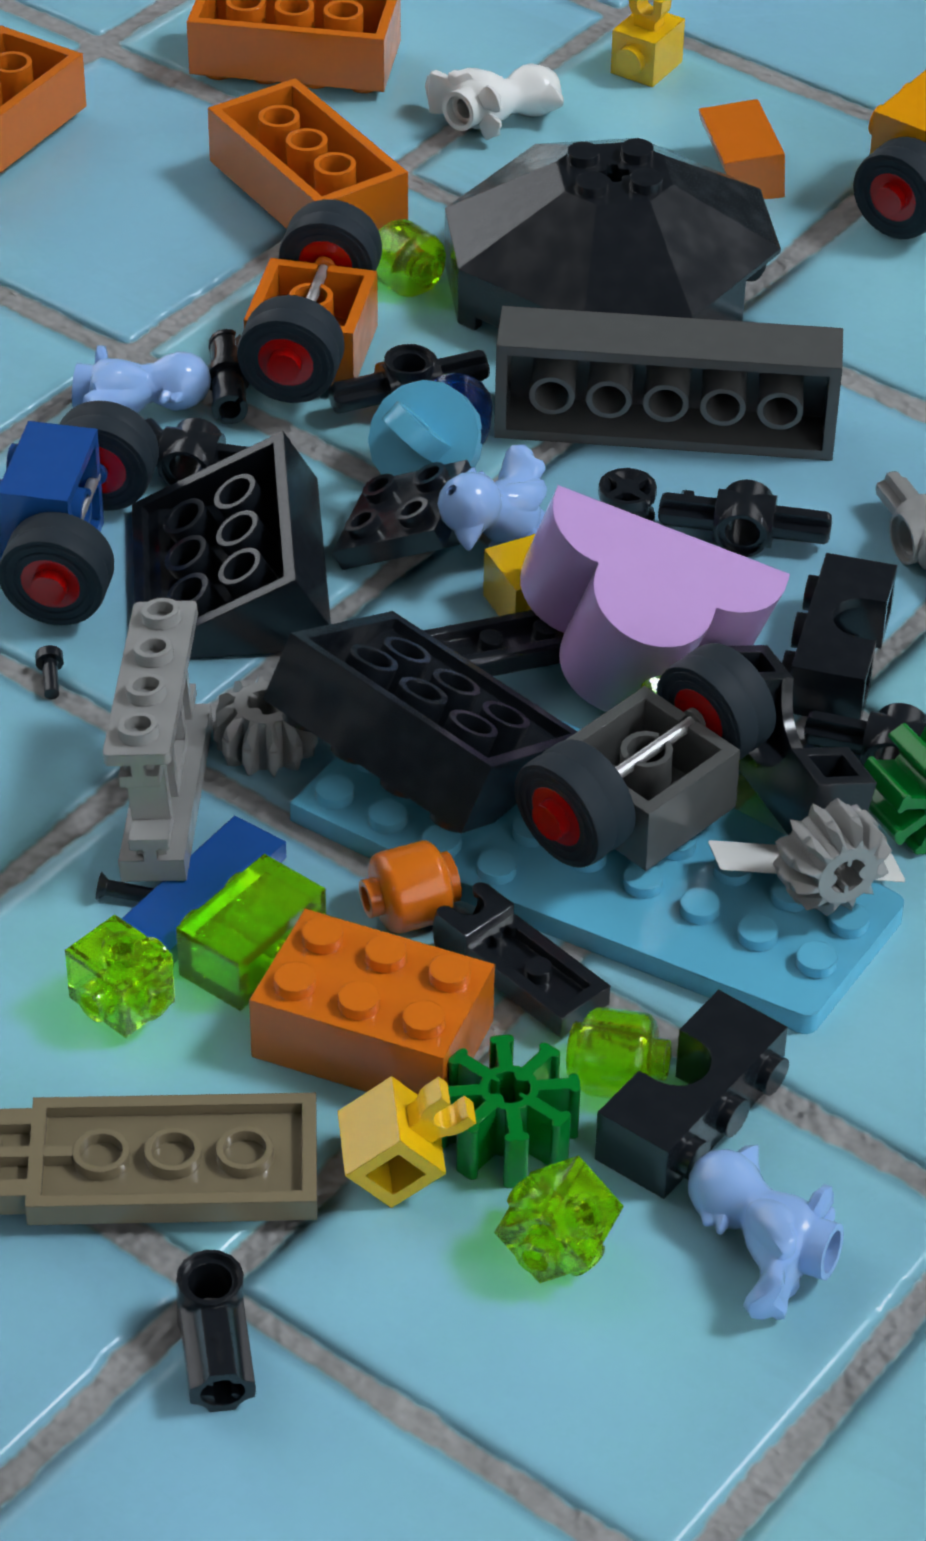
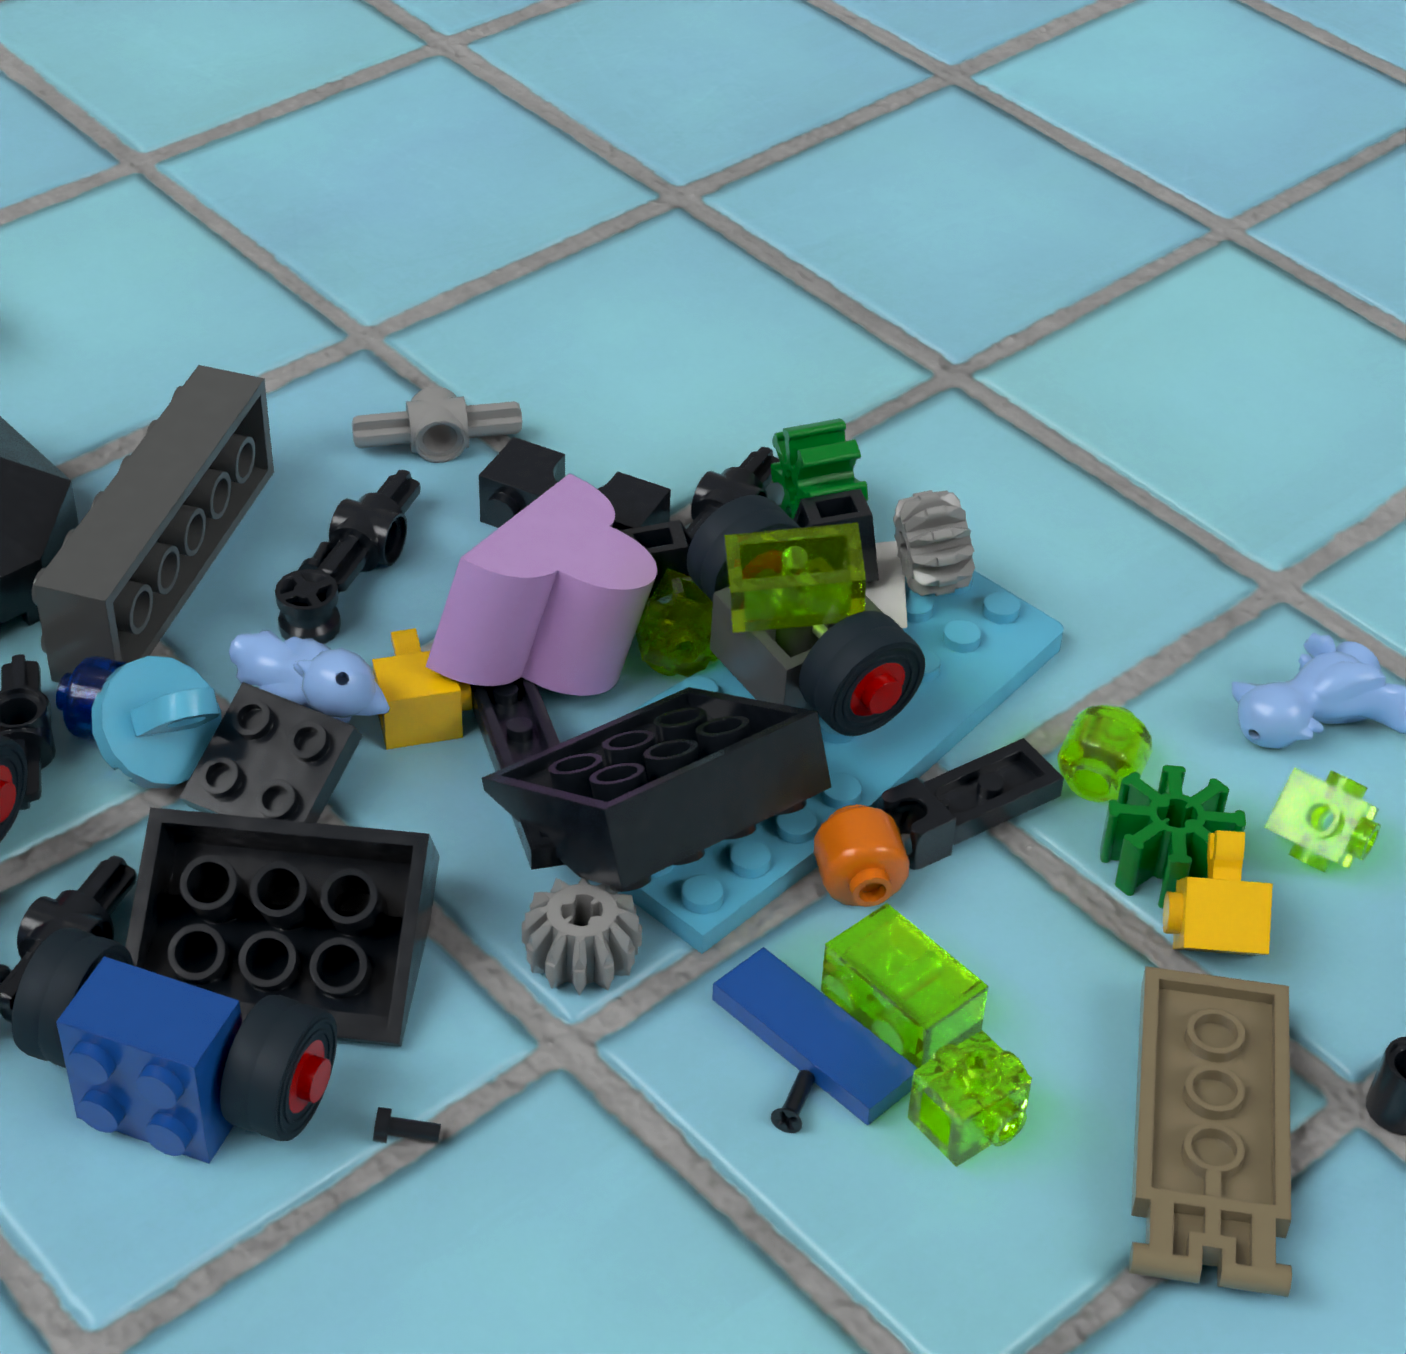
camera: 80 degrees left, 0 degrees up
(158, 741) = (708, 1032): light grey fence -> none
(368, 1005) = (1040, 905): orange brick -> none
(627, 700) = (794, 577): none -> clear neon green brick
(662, 1129) = (1195, 723): black arch -> none

